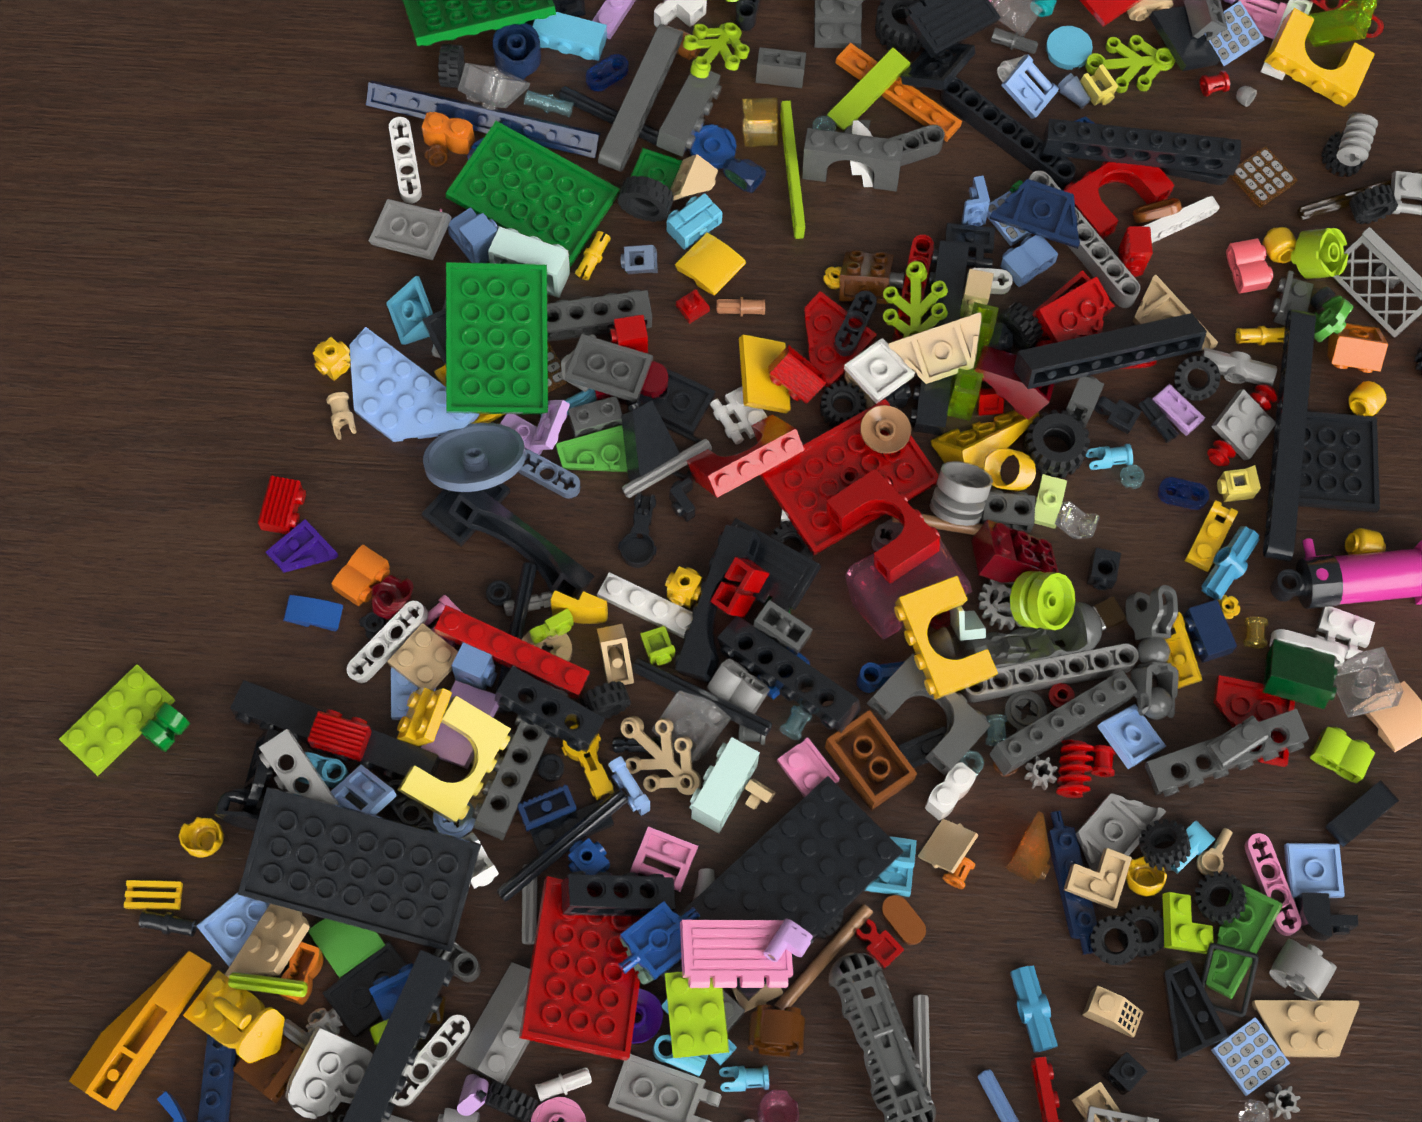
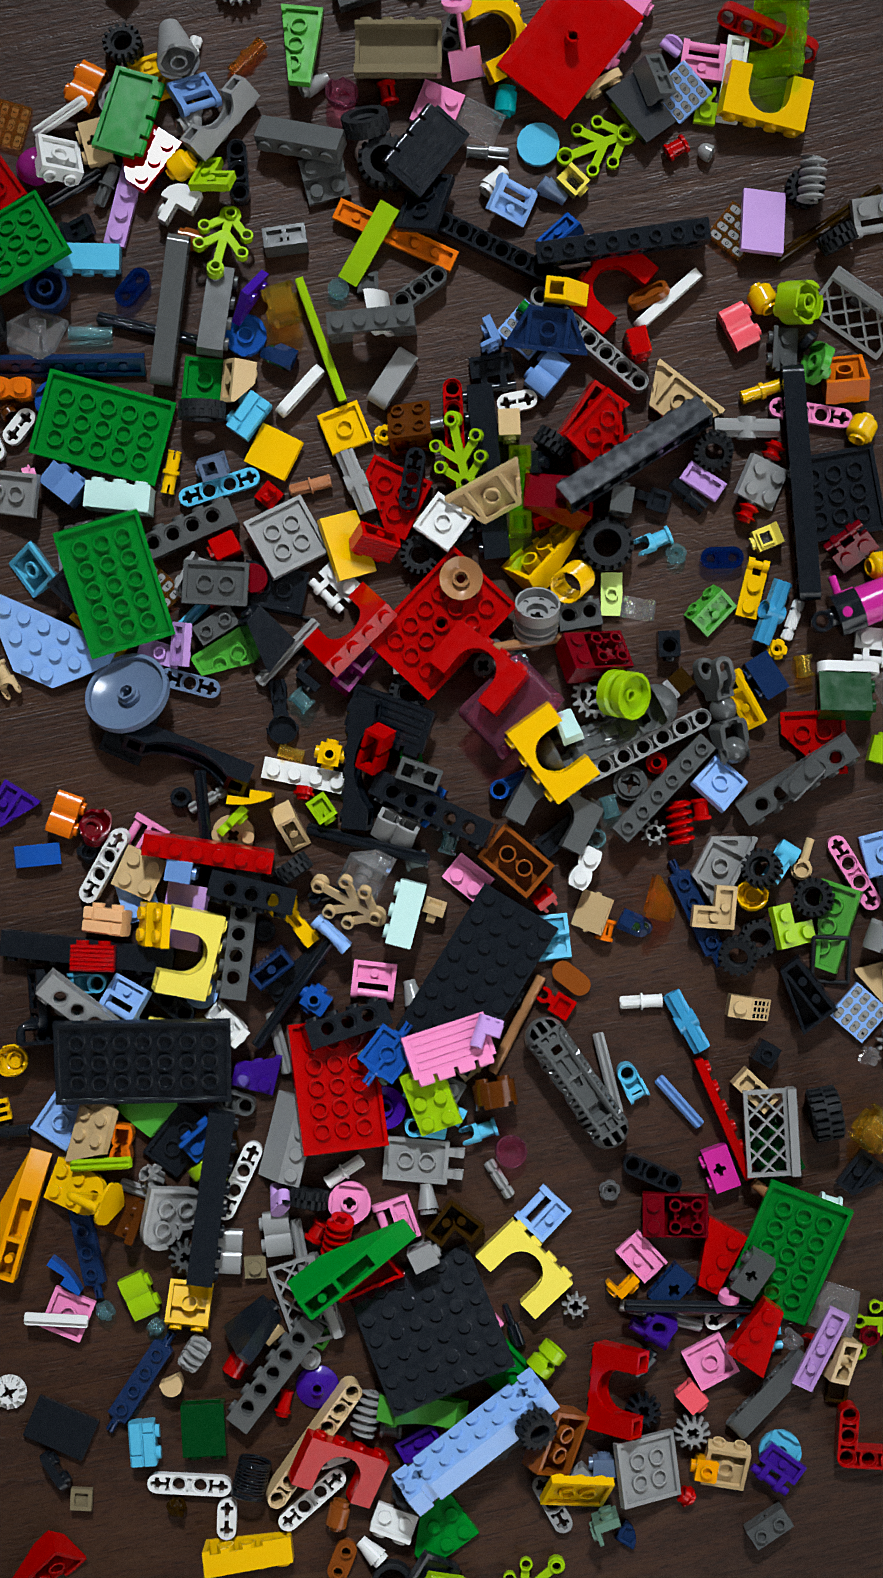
camera: 10 degrees left, 20 degrees up
(370, 702) = (106, 920): none -> light nougat brick
(443, 173) = (15, 423): none -> white beam
(492, 934) = (257, 1074): none -> dark purple wing
(639, 576) = (290, 753): none -> clear yellow pin
(640, 280) = (219, 487): none -> medium azure beam
(642, 622) = (303, 792): none -> red plate
(668, 522) = (301, 700): none -> clear light blue bush
(699, 348) = (286, 537): none -> light grey plate
(727, 107) = (249, 296): none -> dark purple wing
(738, 503) = (354, 672): none -> magenta slope
(756, 211) = (300, 391): none -> white beam
(792, 313) = (356, 481): none -> light grey piece
(794, 259) = (344, 427): none -> yellow plate
(859, 223) = (392, 378): none -> light grey beam
(893, 813) = (543, 897): none -> red tile
(950, 1068) = (633, 1085): none -> medium azure piece
(982, 970) = (641, 1001): none -> white axle
(994, 874) = (634, 923): none -> dark blue rock
(1069, 176) = (565, 291): none -> yellow slope
(1159, 544) = (710, 609): none -> bright green bracket
(1251, 580) = (792, 620): none -> white axle
(1253, 60) = (706, 112): none -> lime plate
(1294, 172) = (762, 222): none -> lavender tile
(1318, 366) = (811, 408): none -> bright pink beam
(1338, 522) = (854, 550): none -> dark red plate

